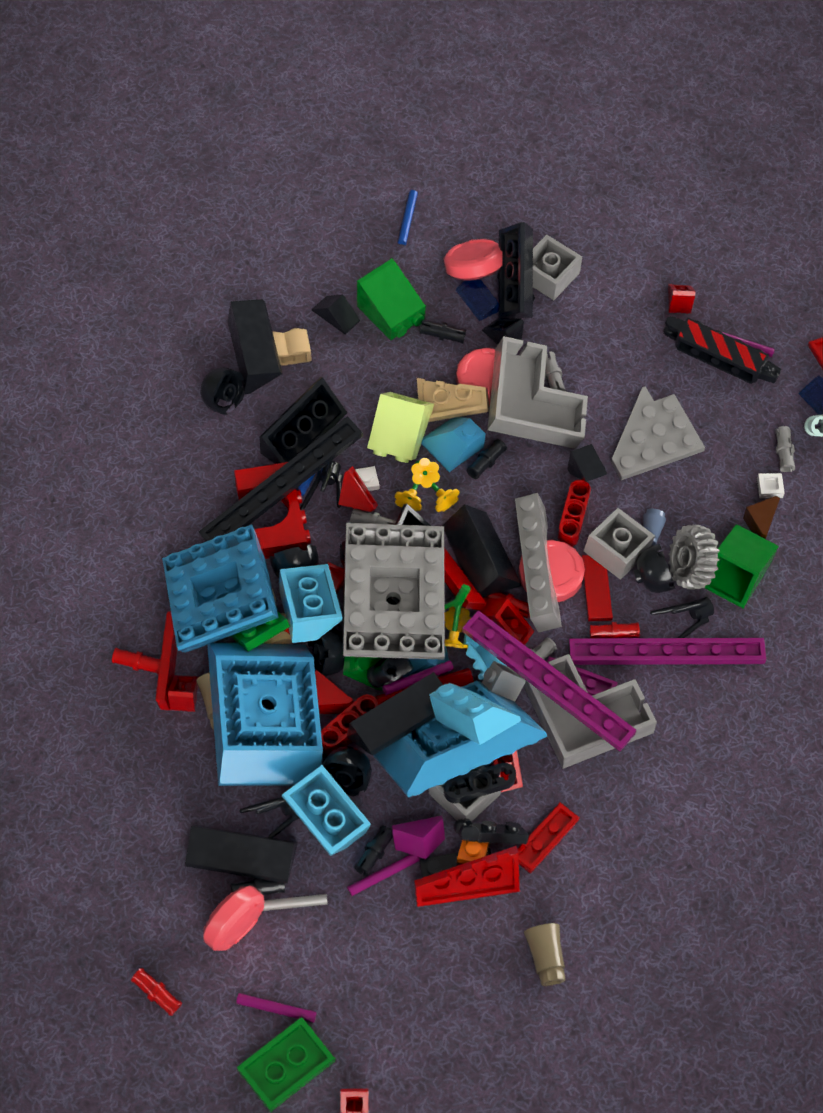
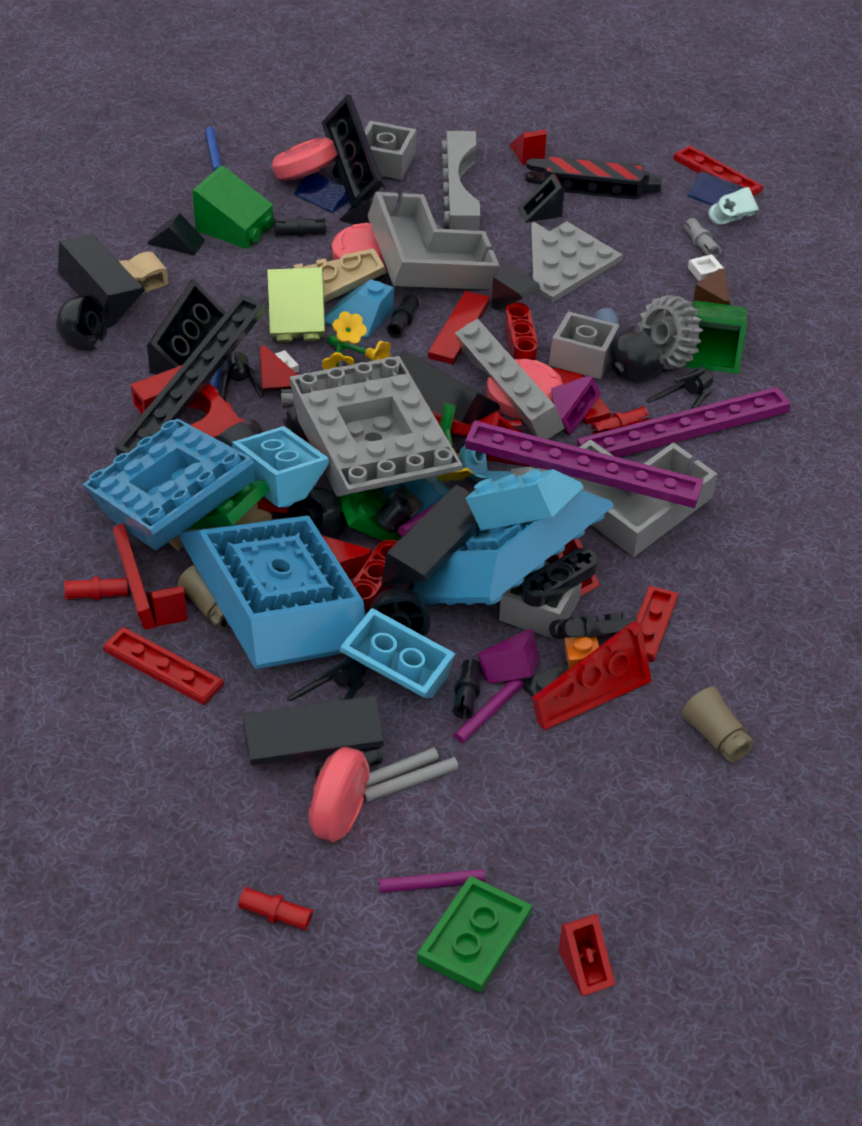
camera: 20 degrees left, 15 degrees down
(161, 749) = (163, 665): none -> red tile
(298, 915) = (411, 779): none -> light grey bar
(530, 482) = (469, 308): none -> red tile
(580, 602) = (574, 401): none -> magenta slope
(588, 355) = (460, 207): none -> light grey arch
(662, 368) = (544, 202): none -> black slope

